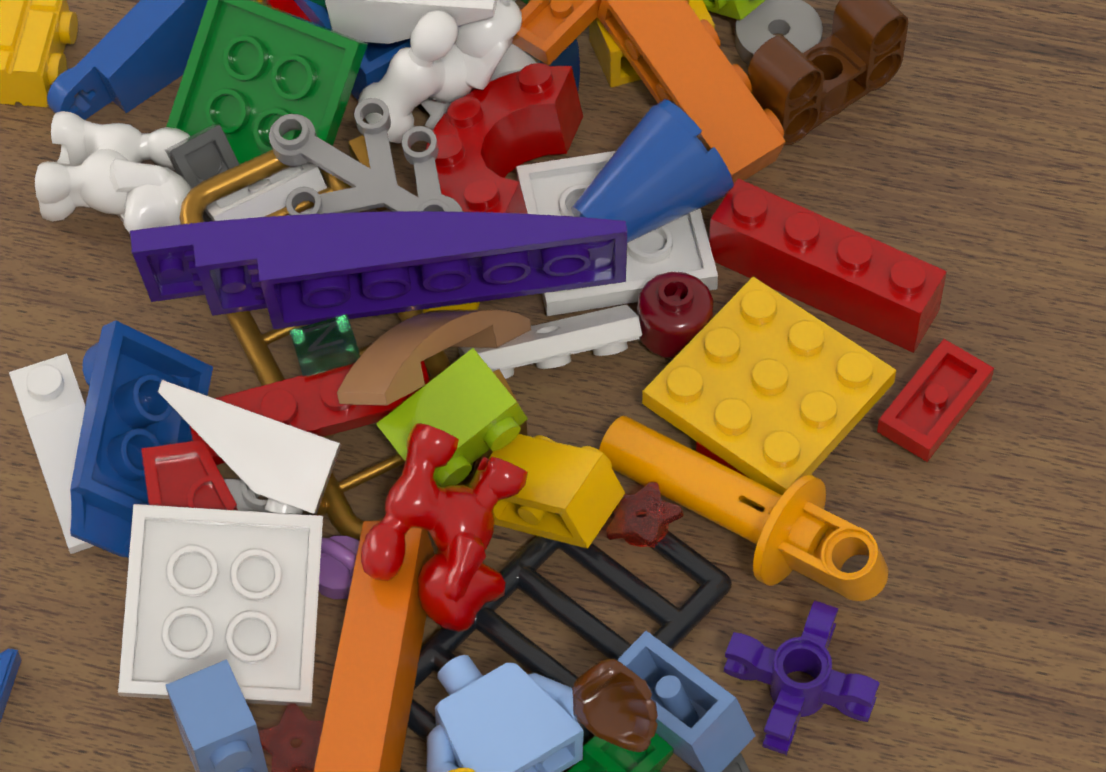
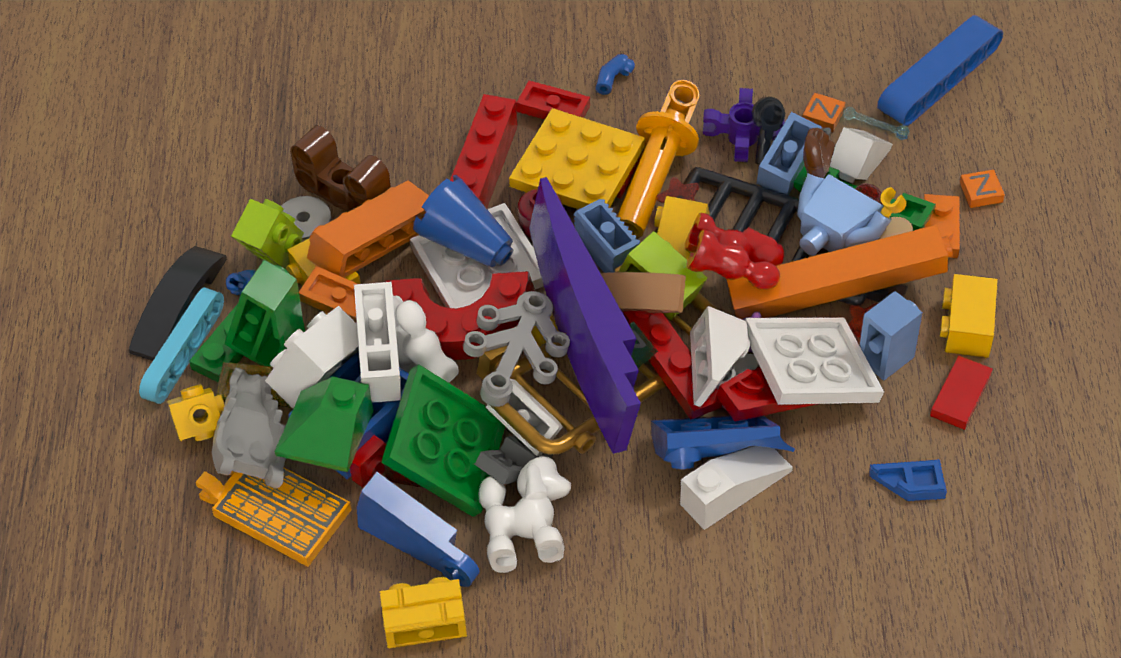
camera: 105 degrees left, 5 degrees down
(580, 387) = (604, 235): none -> medium blue brick
(768, 687) = (767, 115): none -> black plate
(1002, 507) = (607, 72): none -> blue arm

